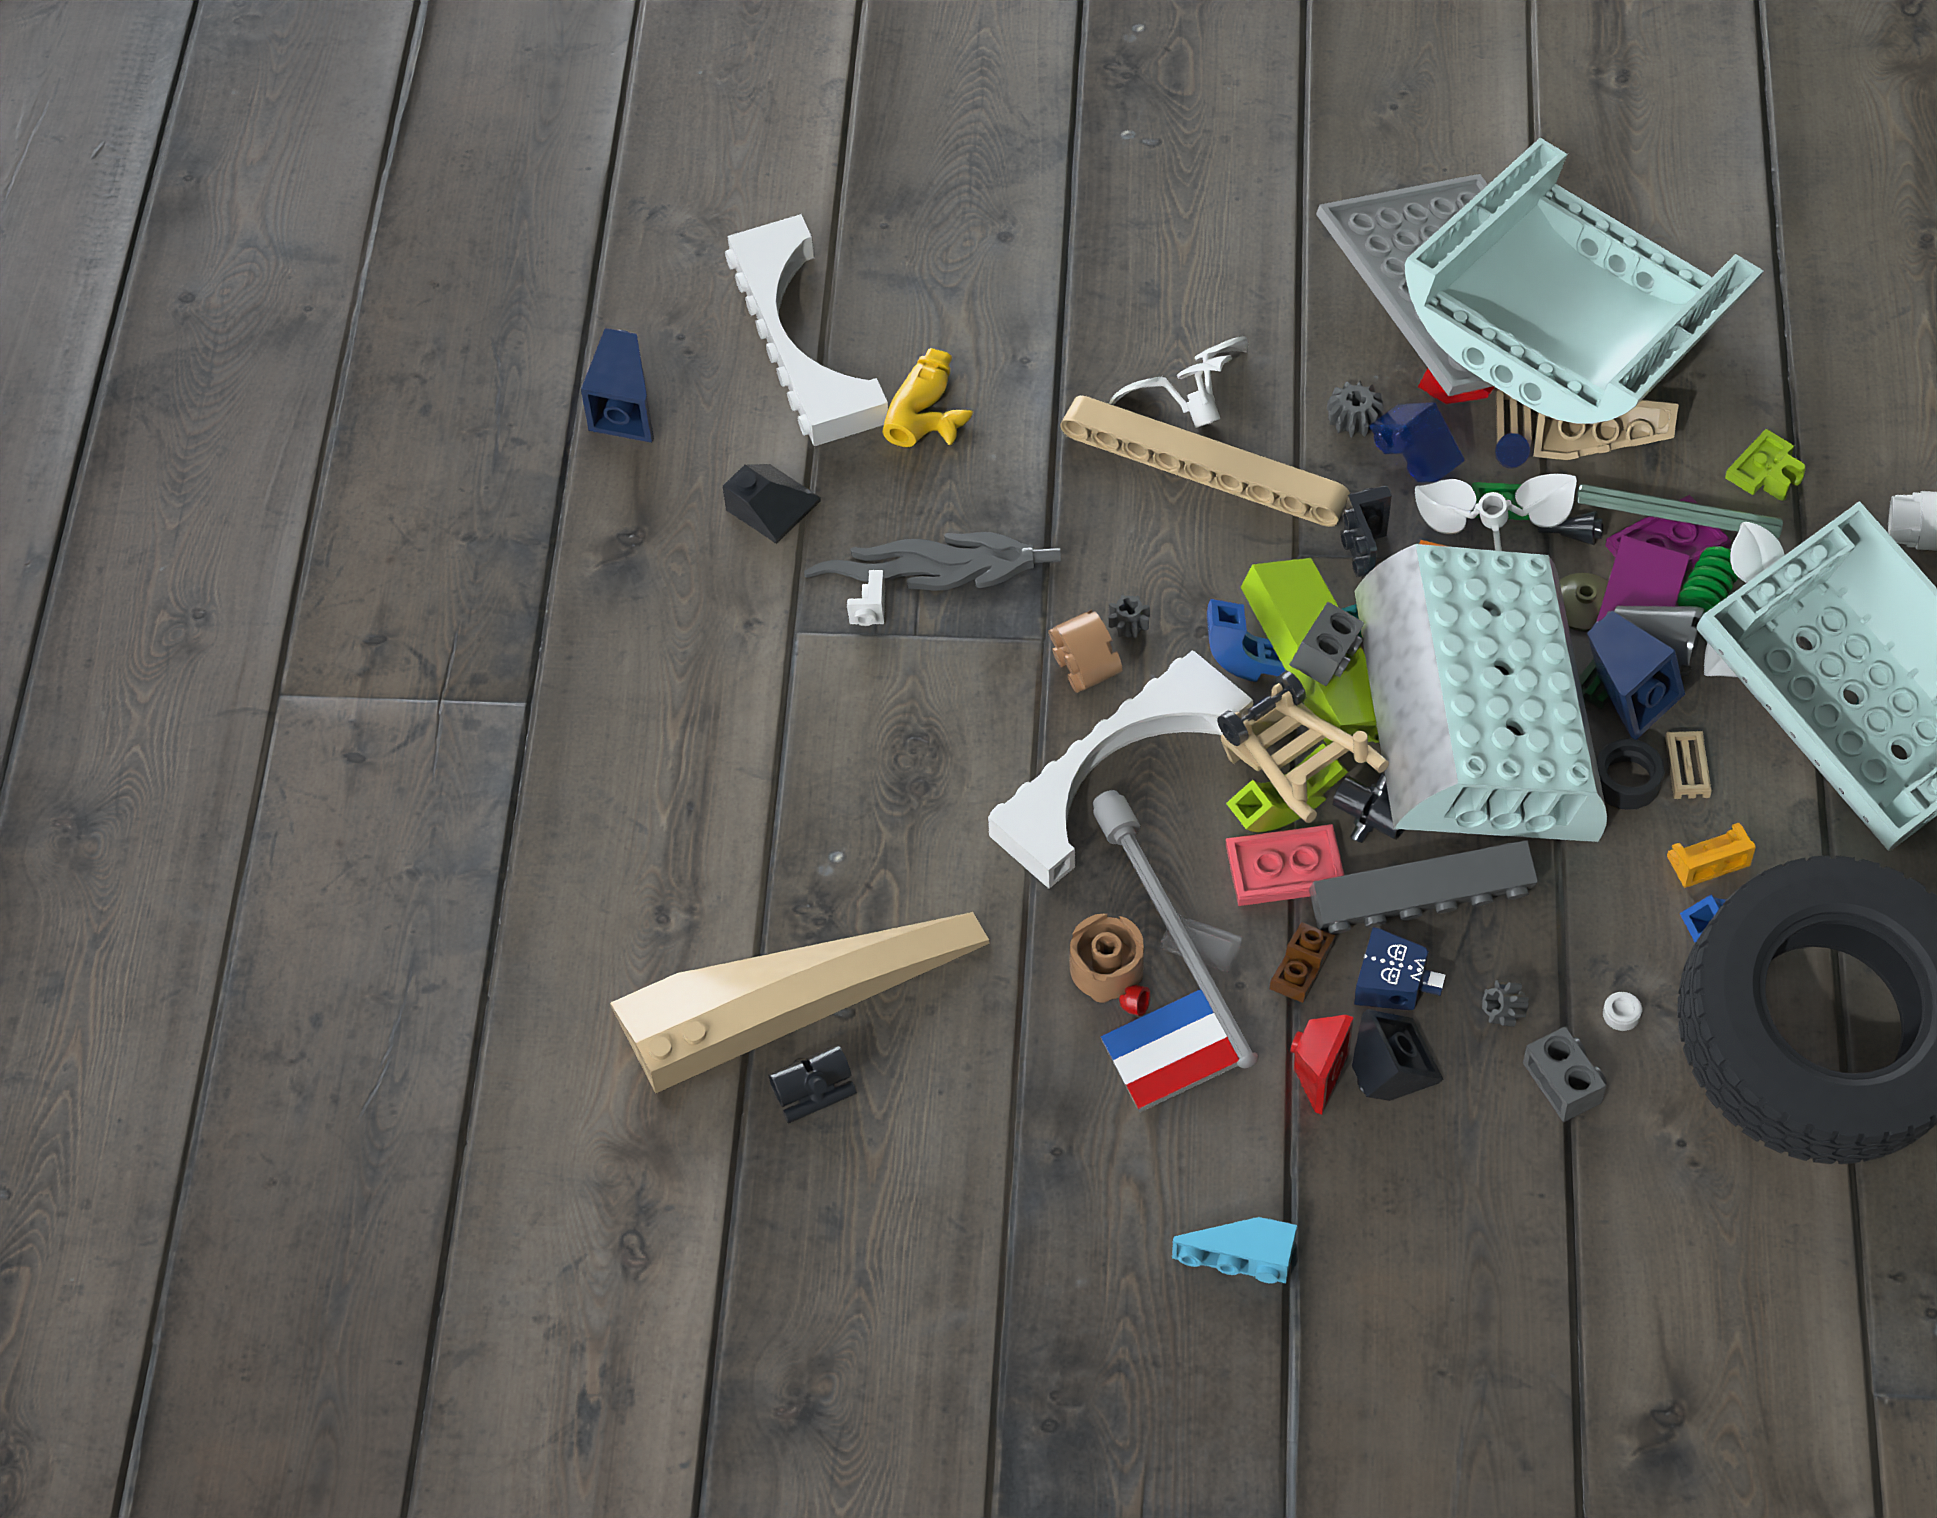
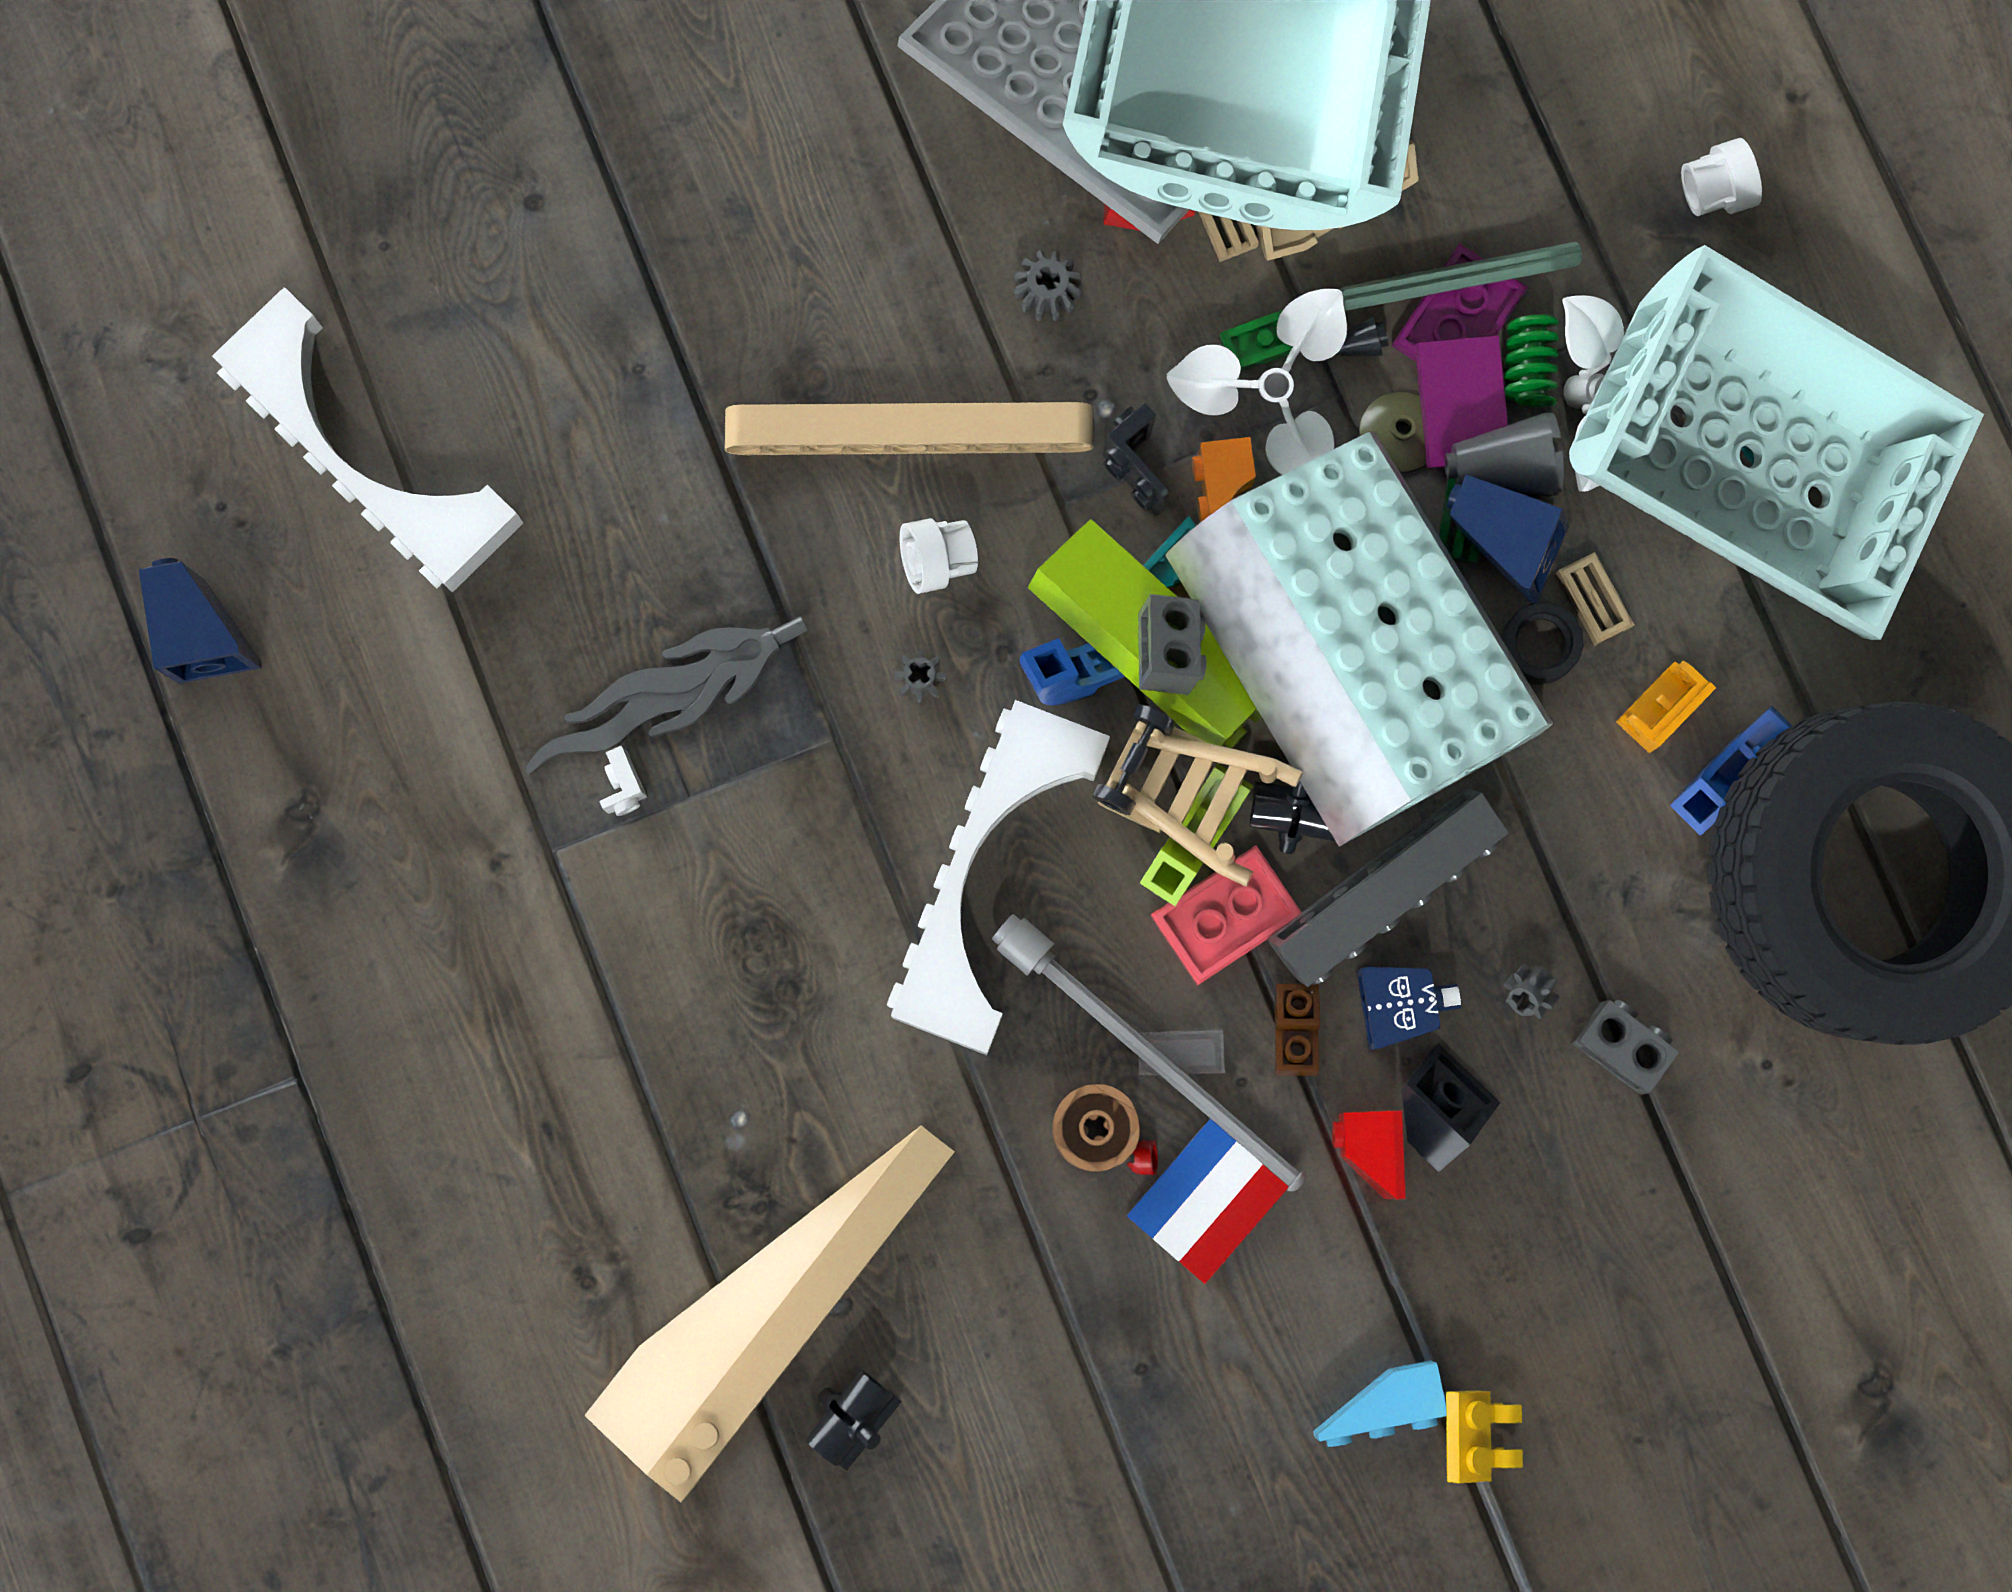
camera: 30 degrees left, 25 degrees up
(768, 500) = (440, 692): black slope -> none
(919, 391) = (540, 473): yellow piece -> none
(1086, 650) = (897, 751): medium nougat brick -> none
(1184, 539) = (937, 553): none -> white piece
(1202, 402) = (868, 347): white plant -> none
(1297, 1291) = (1469, 1436): none -> yellow plate
(1421, 437) = (1140, 303): clear blue brick -> none
(1512, 450) = (1244, 267): clear blue tile -> none
(1622, 1011) = (1648, 937): white tile -> none
(1767, 464) = (1527, 170): lime plate -> none

